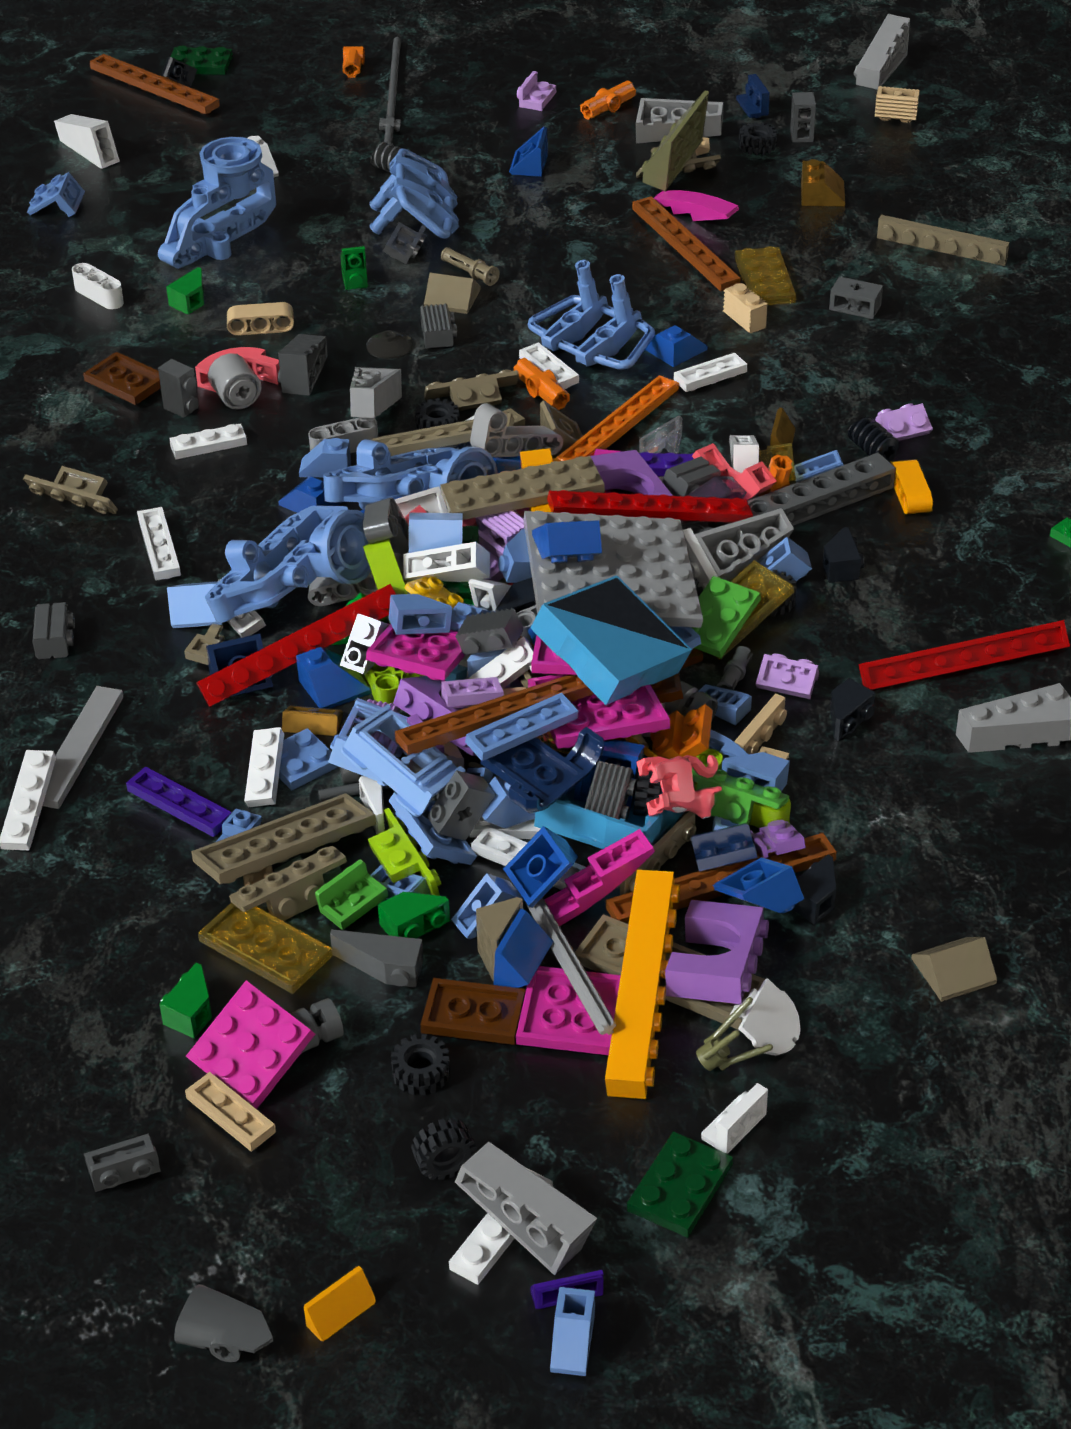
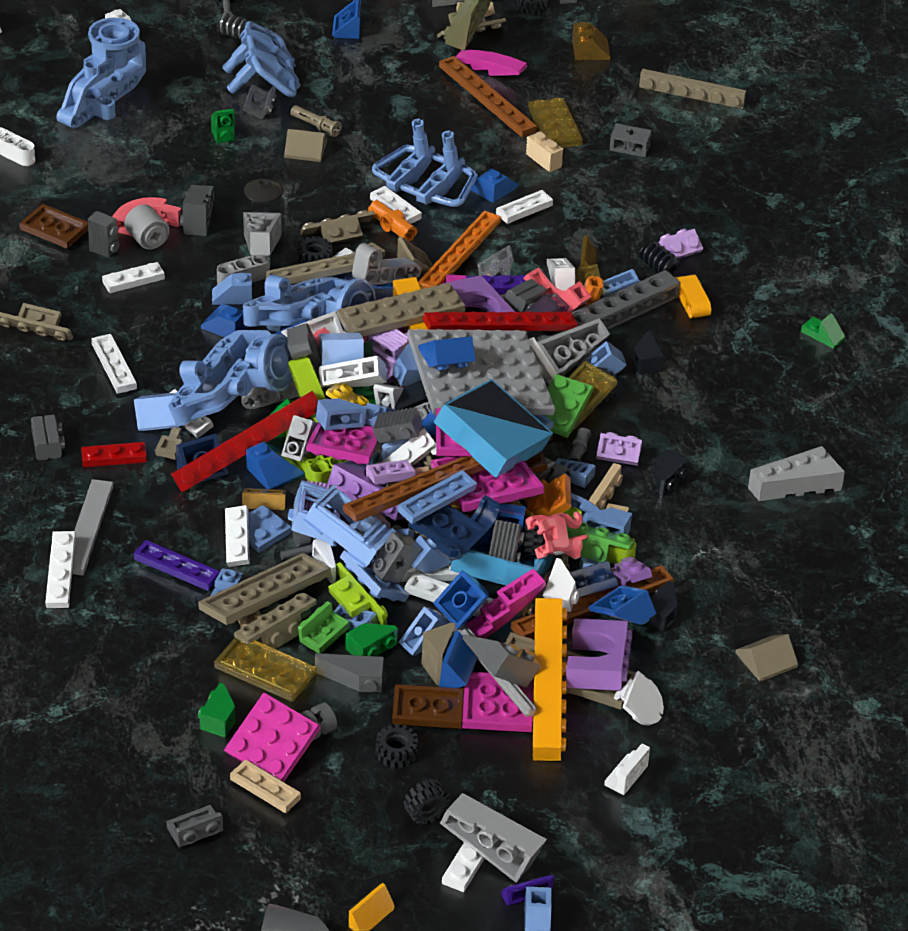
camera: 10 degrees left, 0 degrees up
(133, 656) = (113, 454): none -> red plate
(187, 292) = (88, 150): green slope -> none
(249, 321) = (153, 171): tan beam -> none
(438, 326) = (300, 174): dark grey brick -> none
(582, 954) = (505, 660): none -> dark grey slope
(678, 855) = (562, 586): none -> white slope
(680, 1184) = (594, 816): dark green plate -> none
(715, 1049) = (606, 724): olive plant -> none
(964, 655) = (748, 427): red plate -> none

